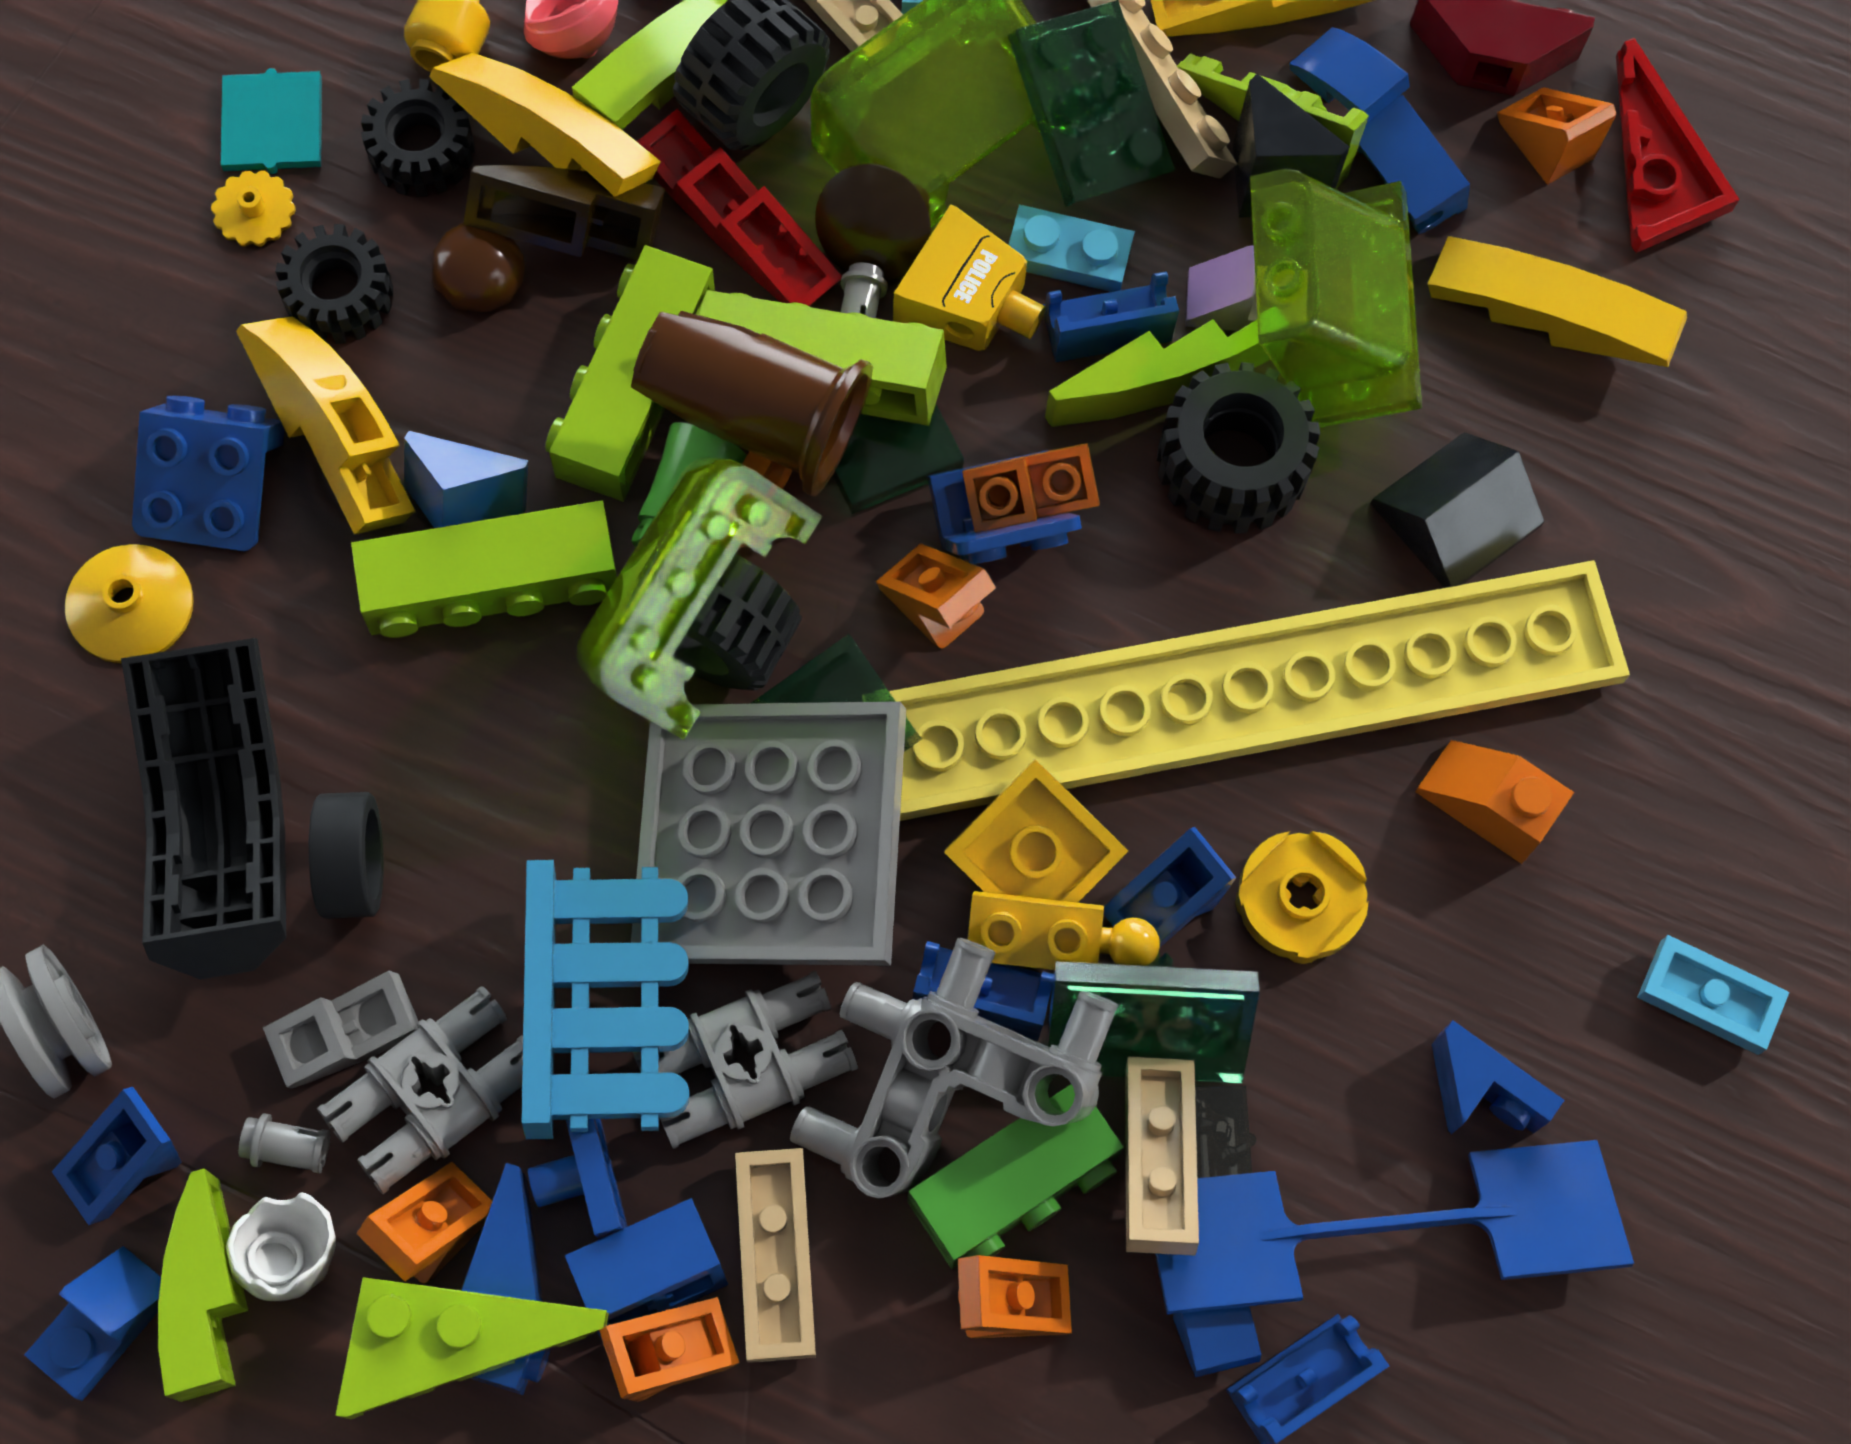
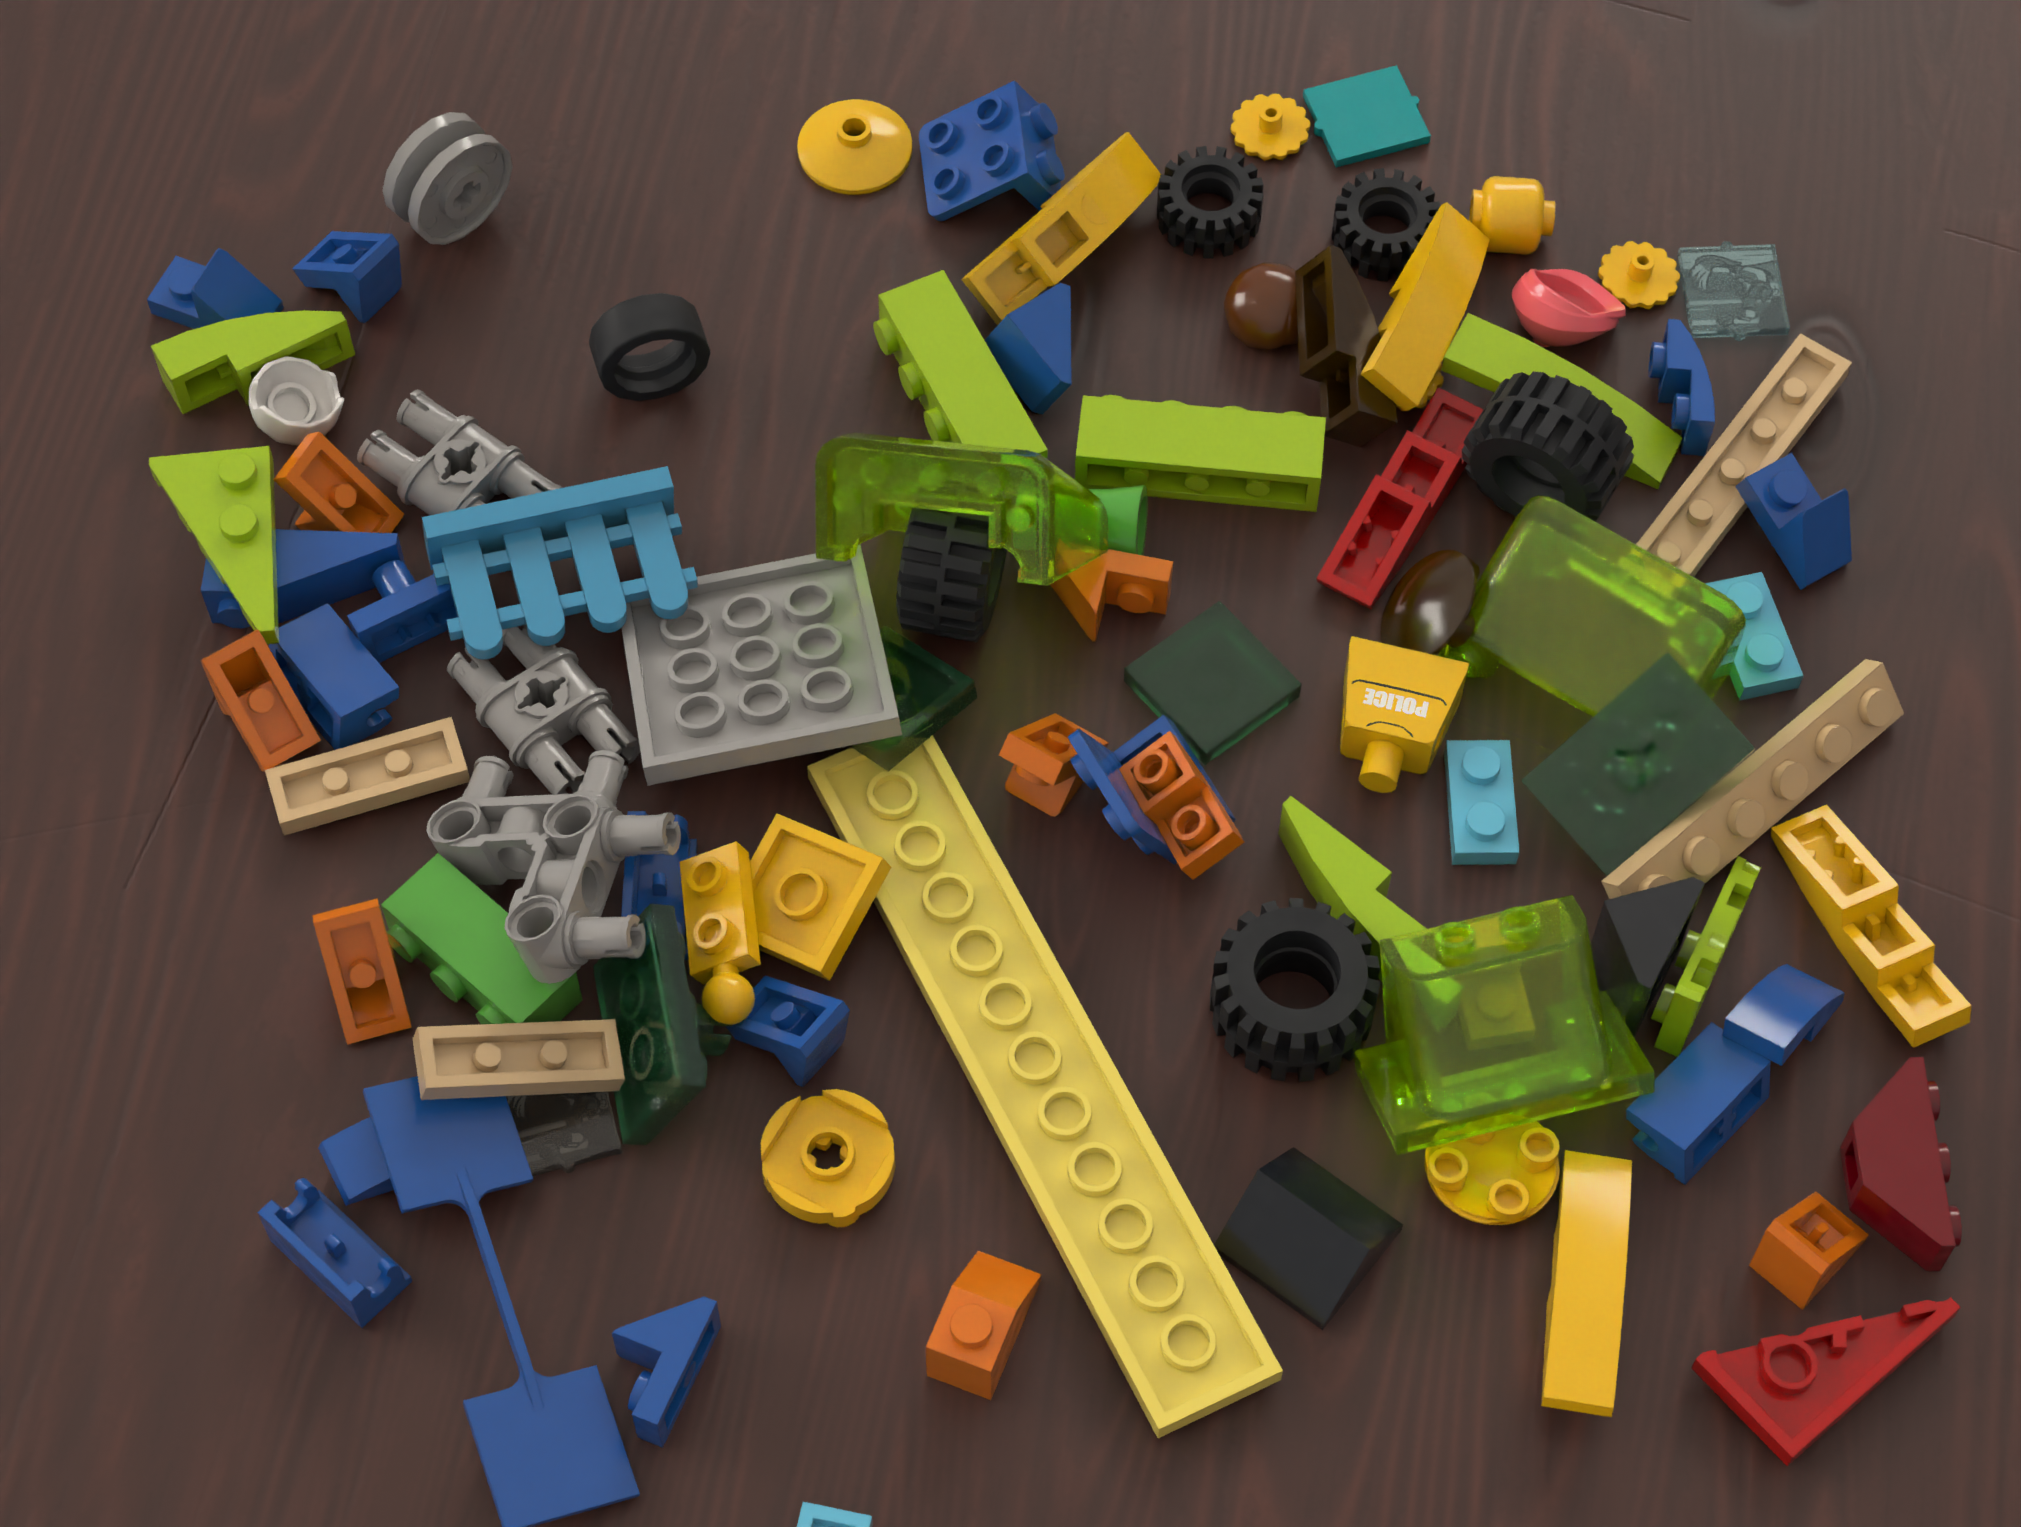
camera: 80 degrees right, 10 degrees down
(208, 808) = (664, 239): black piece -> none
(283, 1144) = (389, 371): light grey pin -> none
(342, 1030) = (500, 400): light grey slope -> none
(754, 392) = (1175, 528): reddish brown piece -> none
(863, 288) = (1336, 627): light grey pin -> none
(904, 356) = (1263, 594): lime brick -> none
(1109, 319) = (1409, 848): blue hinge -> none
(1449, 342) = (1496, 1174): none -> yellow dish

